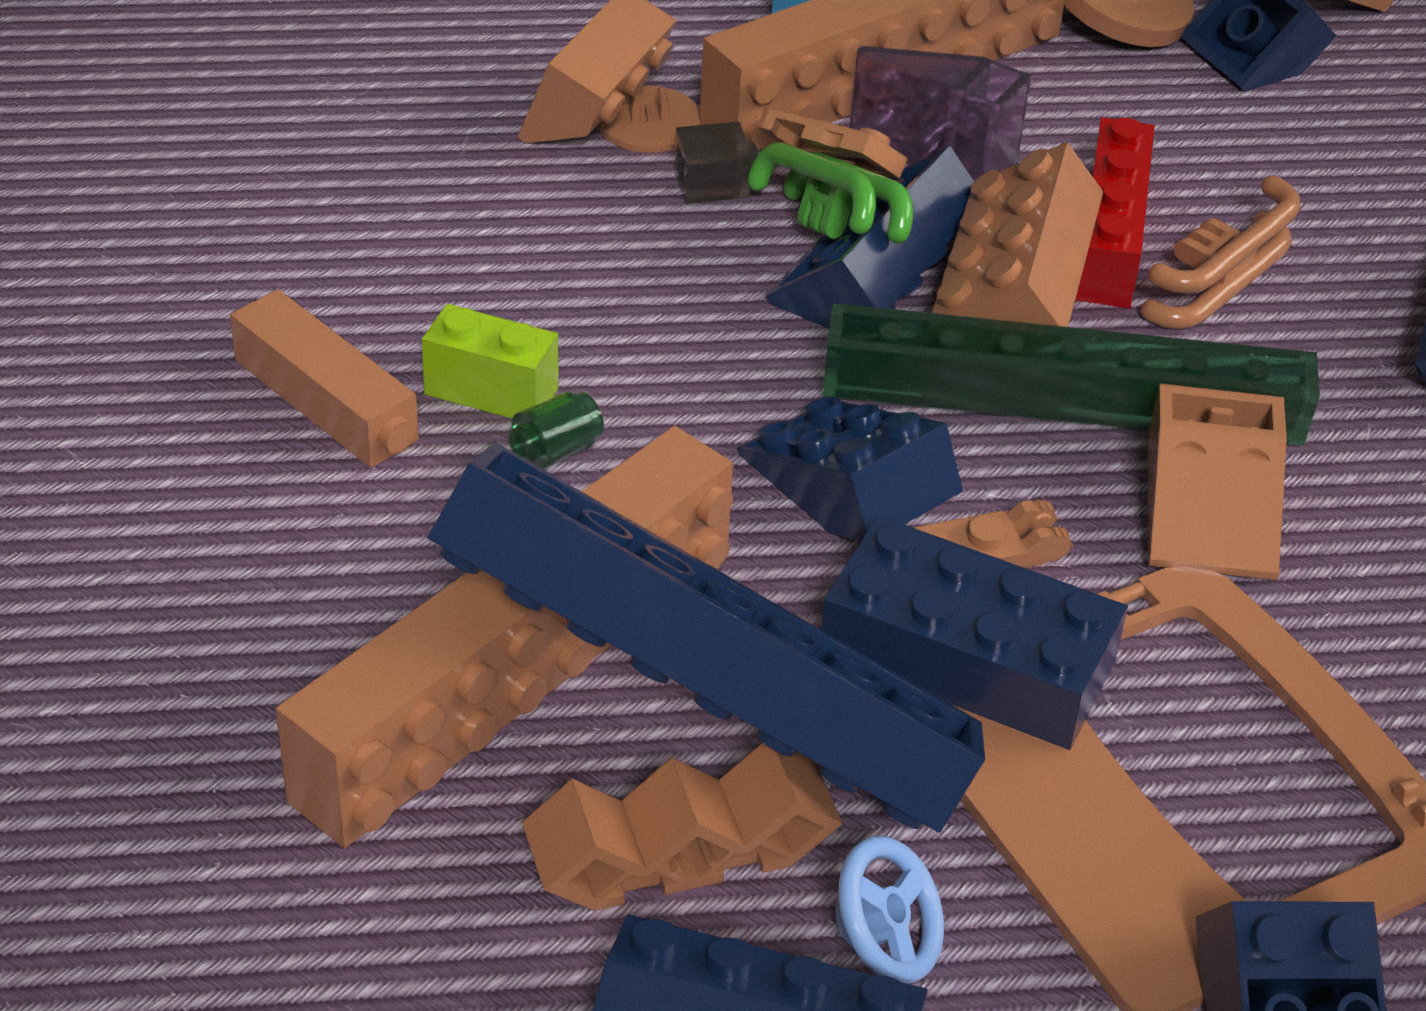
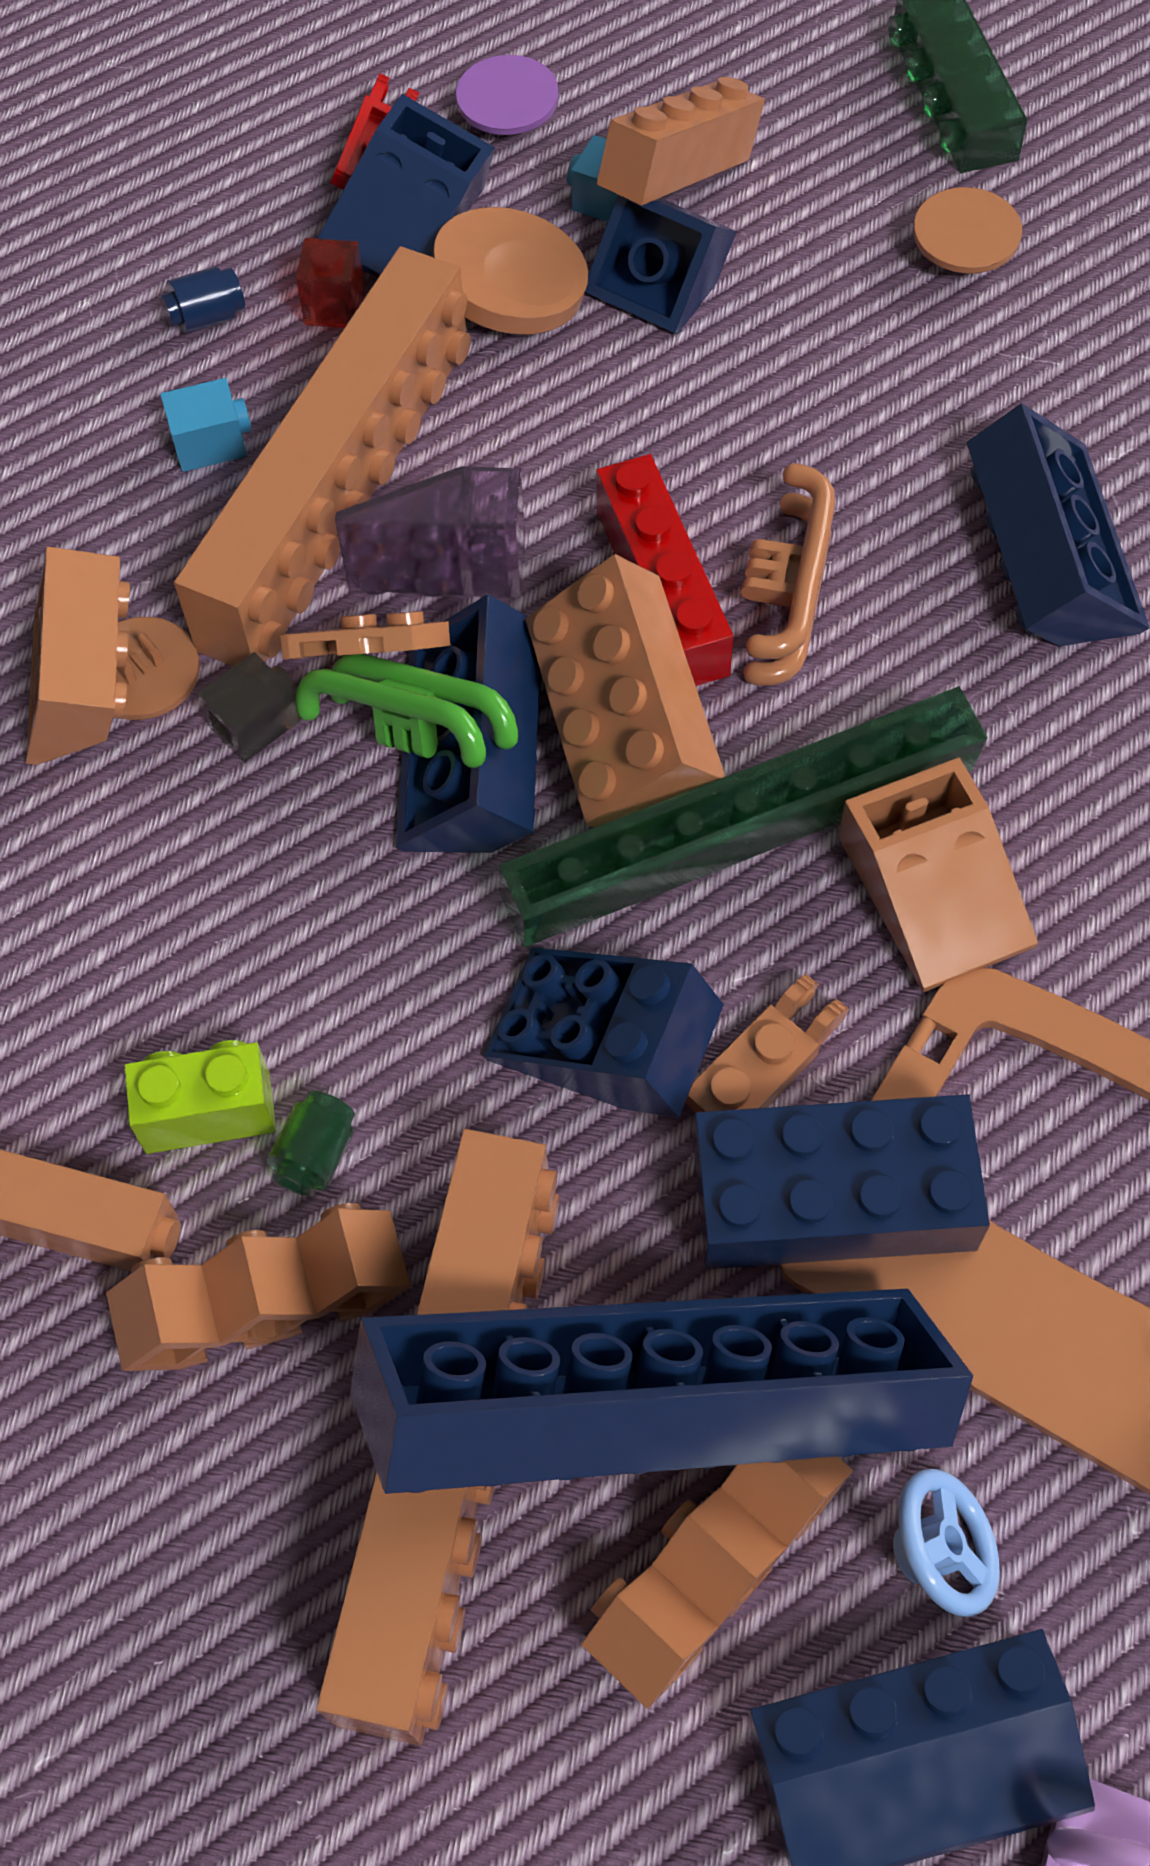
camera: 25 degrees left, 20 degrees up
(373, 482) = (256, 1289): none -> nougat brick

